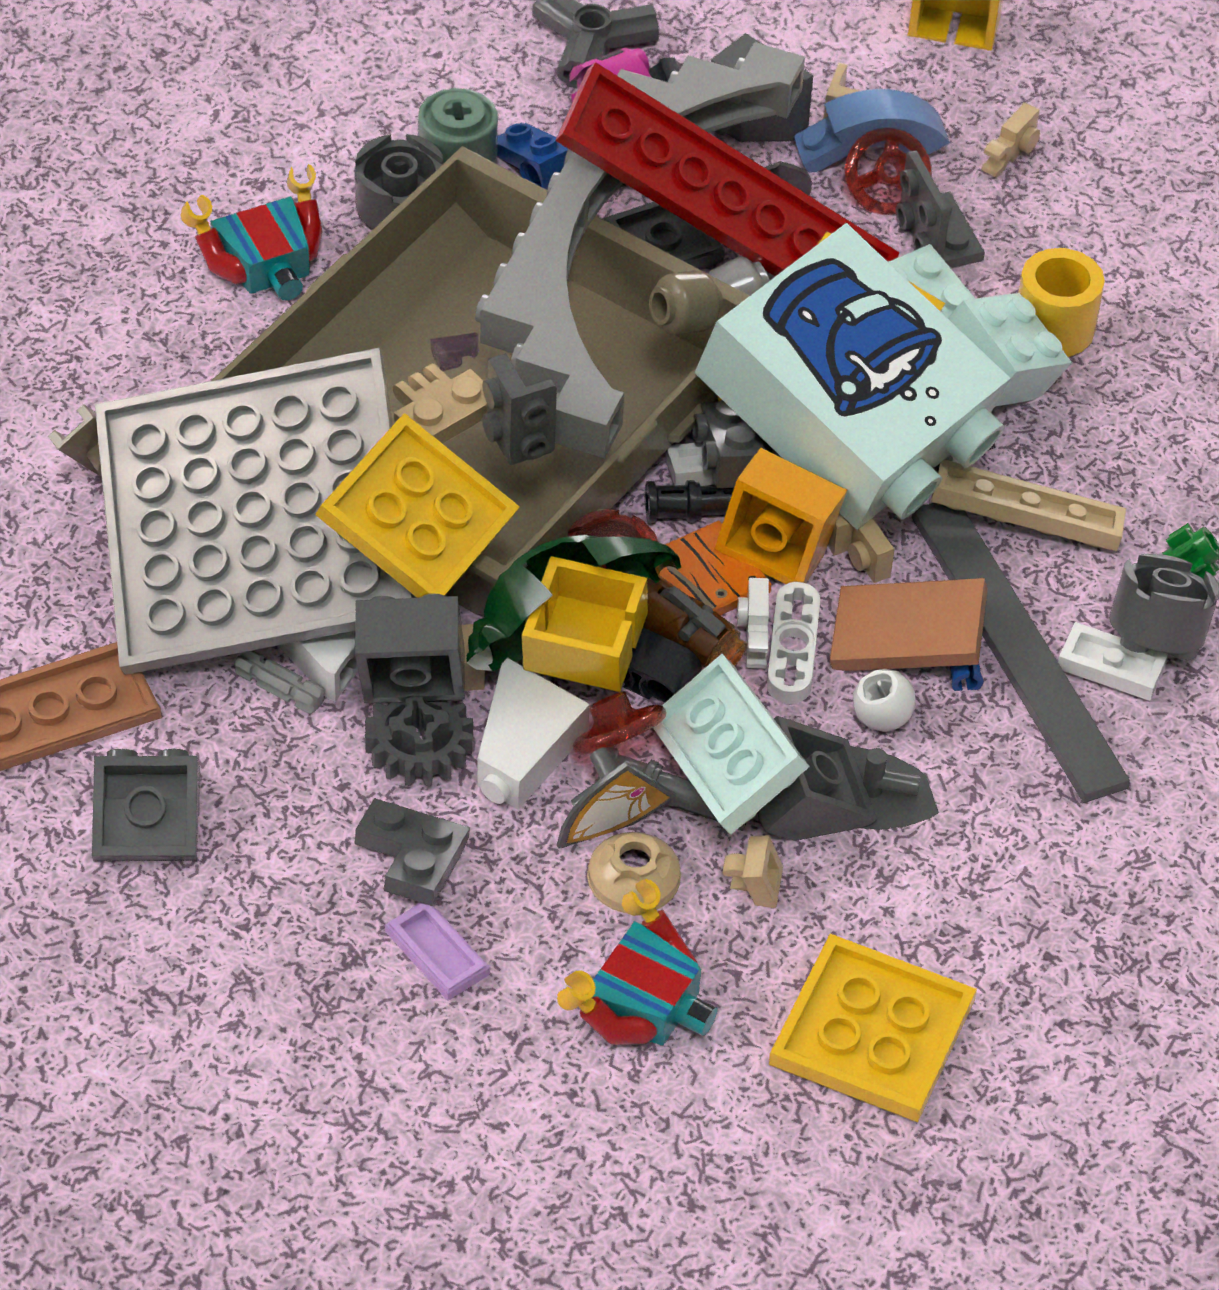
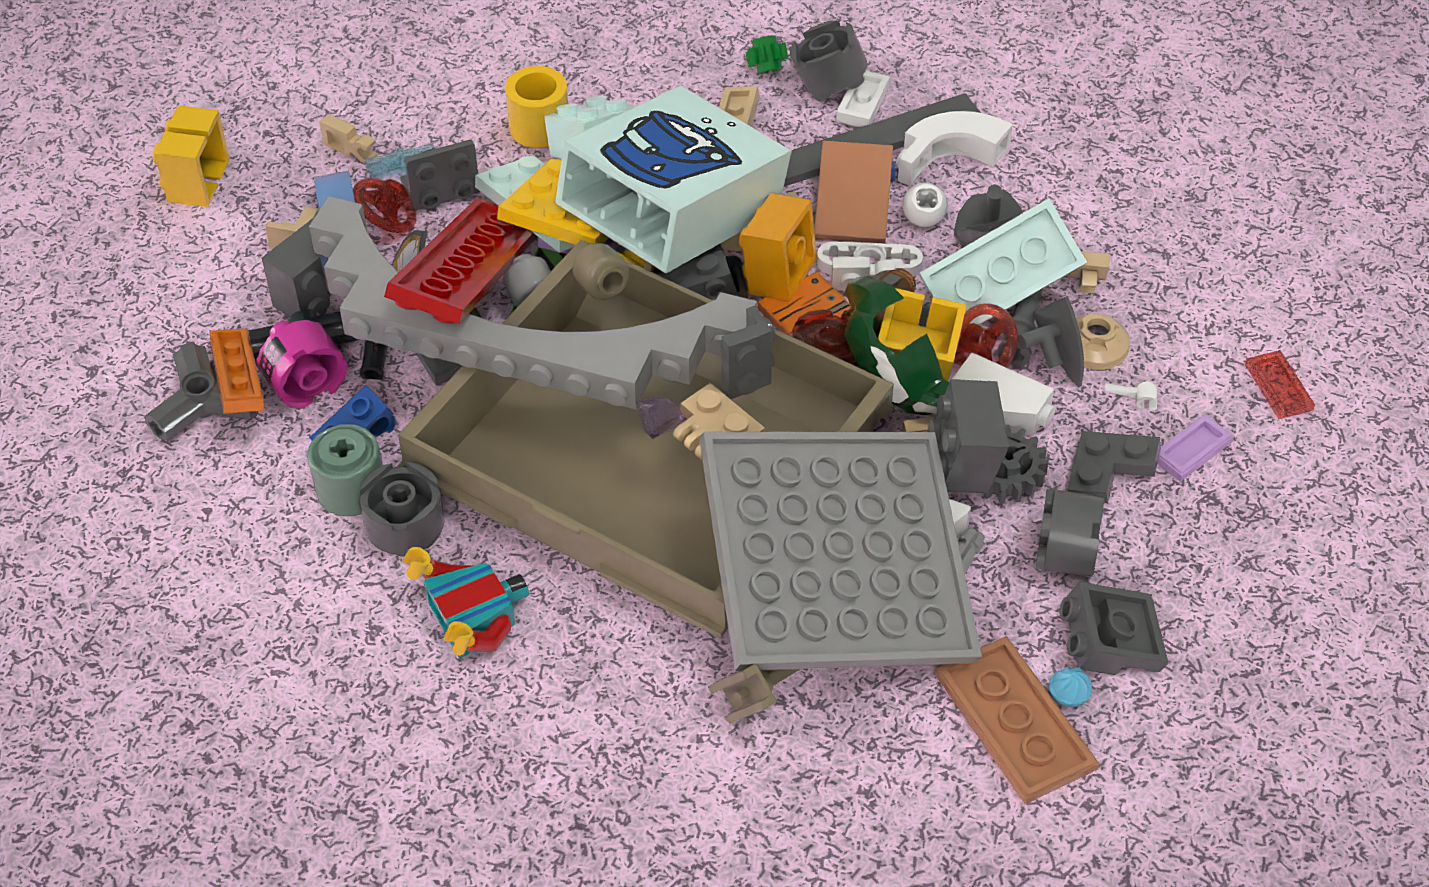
camera: 90 degrees left, 0 degrees up
(75, 760) = (1070, 686): none -> medium azure plate
(281, 767) = (1070, 532): none -> dark grey brick
(417, 510) = (858, 414): yellow plate -> none
(535, 904) = (1144, 391): none -> white hand
(540, 1069) = (1279, 384): none -> clear red tile
(580, 42) = (236, 371): none -> orange tile
(645, 982) = (1203, 323): torso -> none
(873, 1027) = (1199, 214): yellow plate -> none
(980, 194) = (393, 162): none -> clear light blue pin
(1027, 732) = (952, 133): none -> white arch

